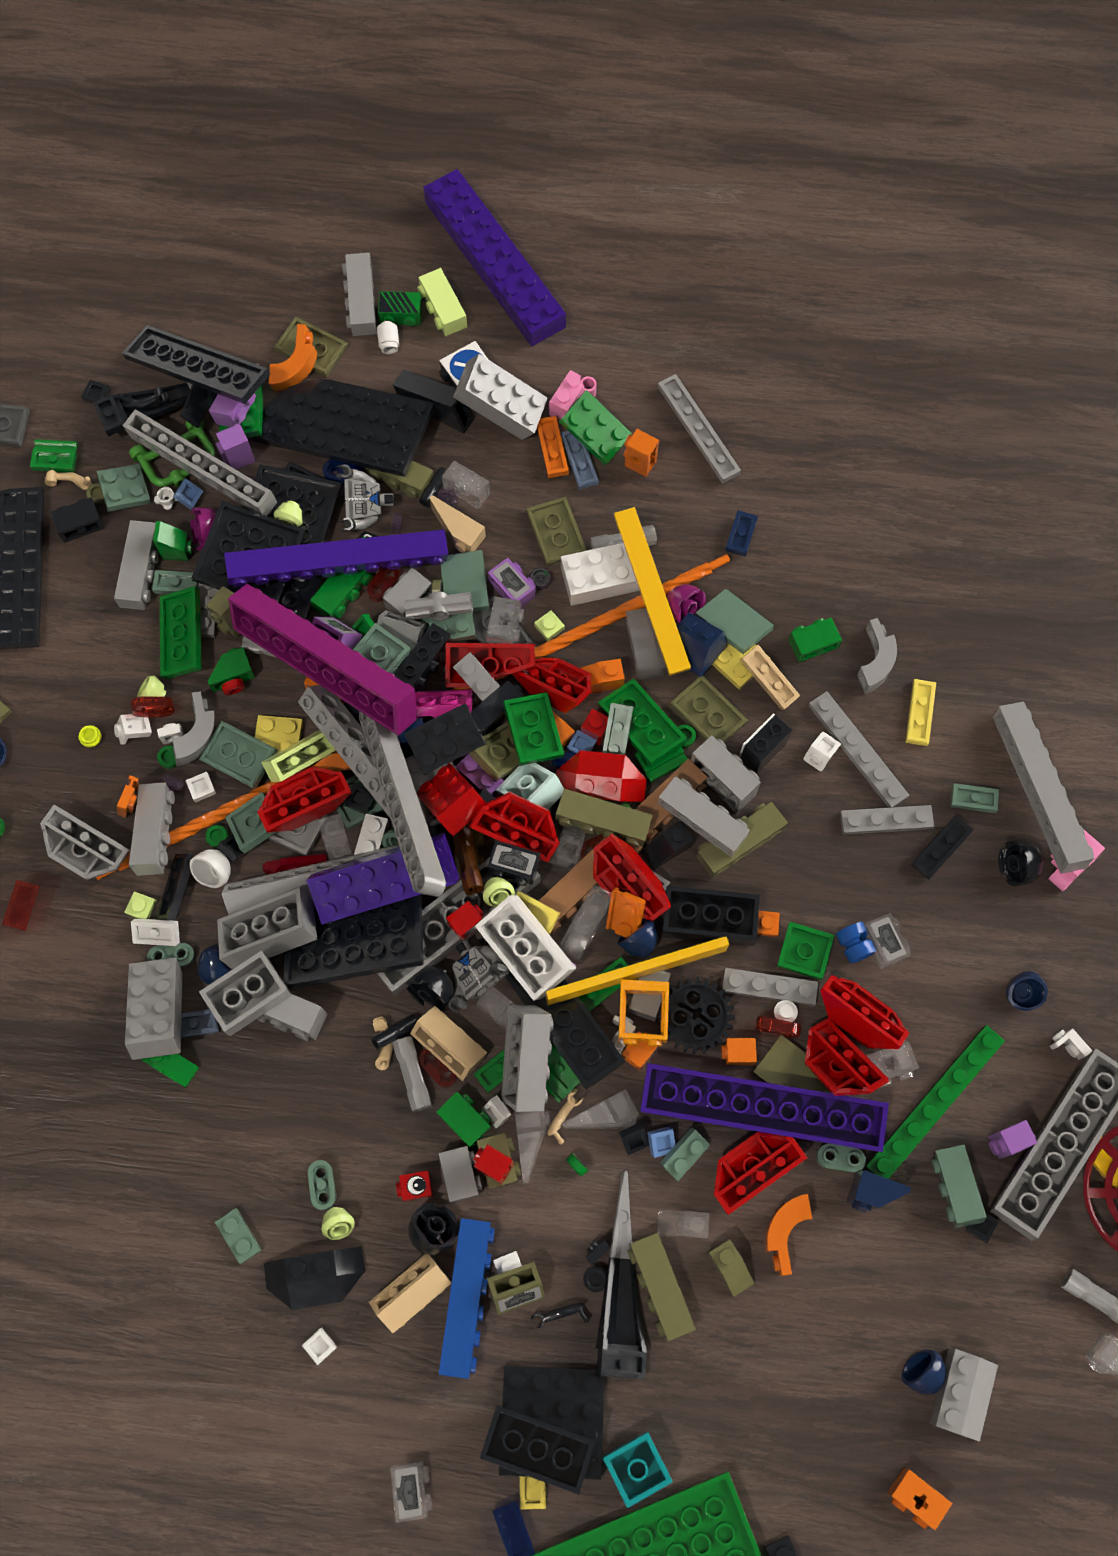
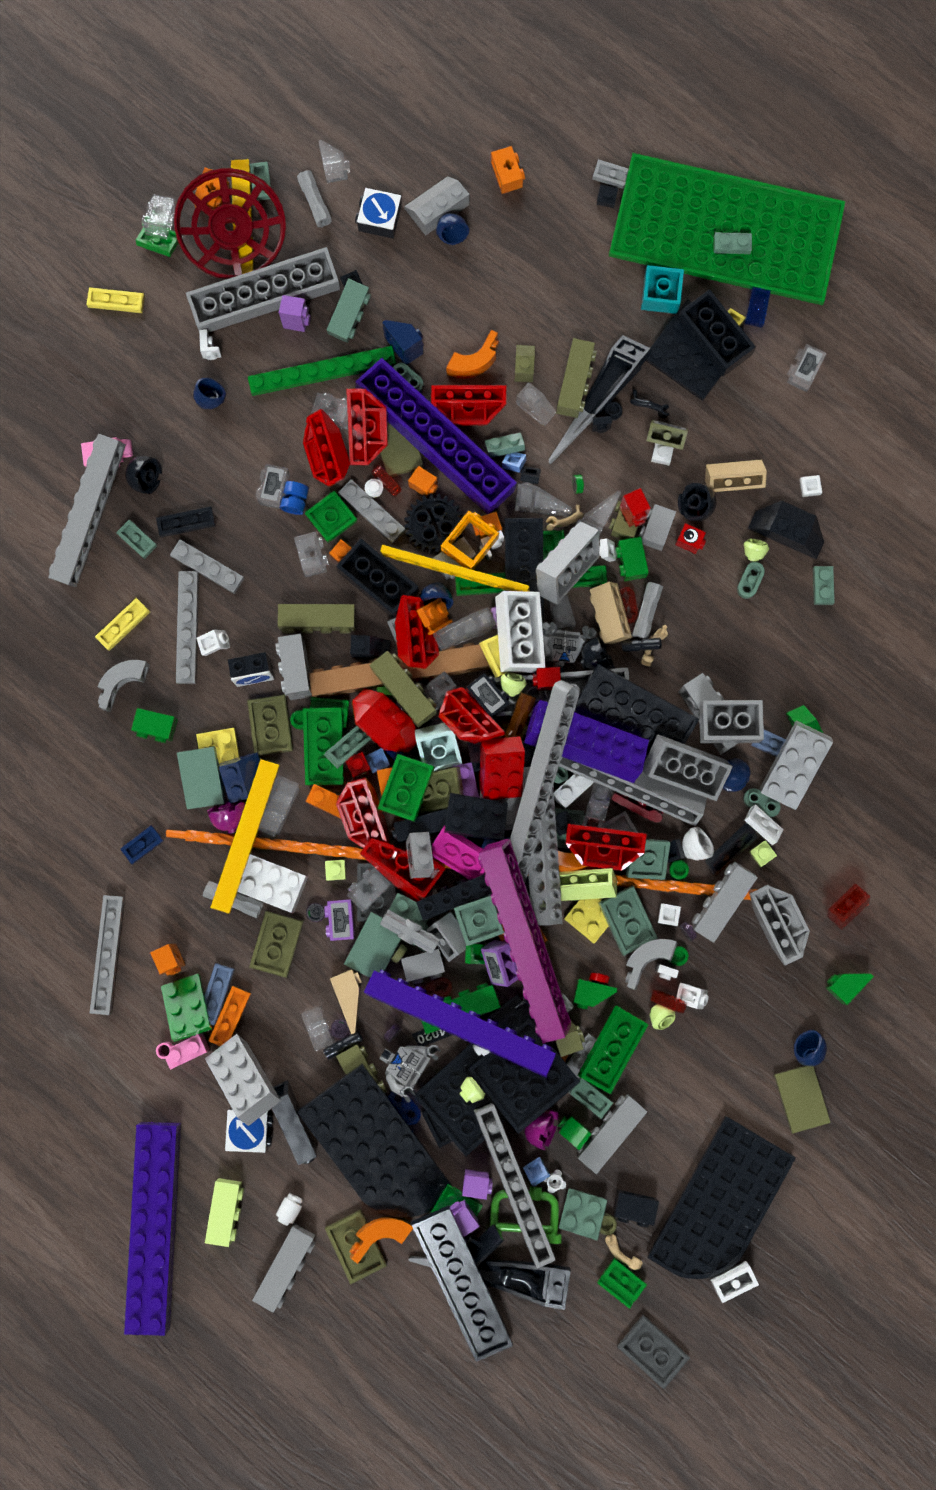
camera: 145 degrees left, 10 degrees up
(90, 736) = (727, 1012): neon yellow plate -> none
(95, 391) = (555, 1322): black plate -> none
(128, 799) = (729, 935): orange plate -> none
(400, 307) = (262, 1230): green brick -> none
(465, 1299) = (704, 449): blue brick -> none
(703, 816) = (333, 644): light grey brick -> none
(770, 677) = (209, 717): tan plate -> none
(788, 888) = (306, 544): none -> clear brick
(1017, 1332) = (379, 213): none -> piece

